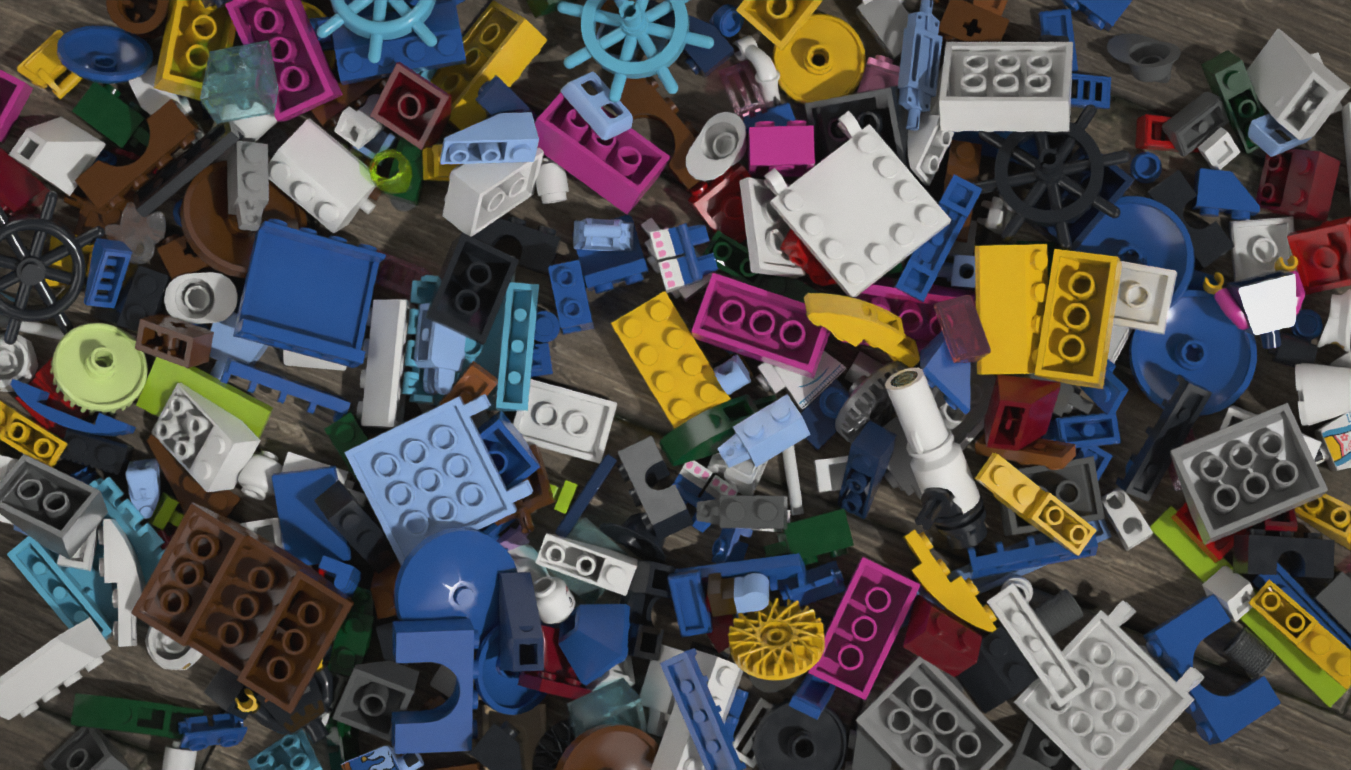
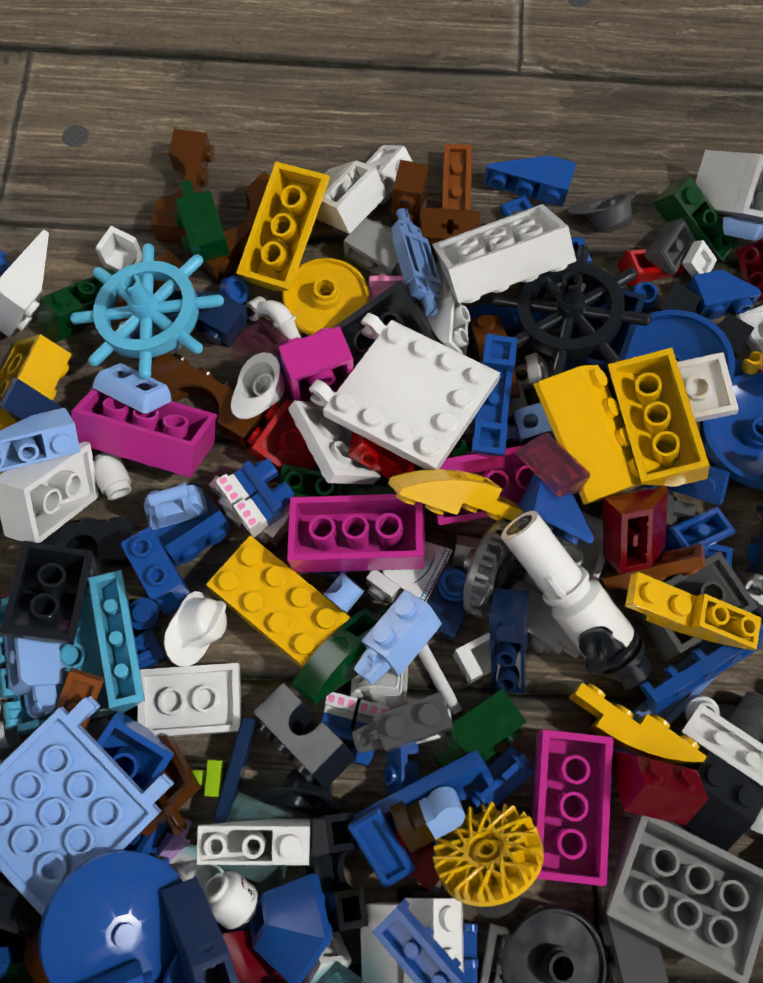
camera: 25 degrees left, 15 degrees down
(589, 357) = (194, 628): none -> white piece
(812, 696) = (548, 904): blue tile -> none

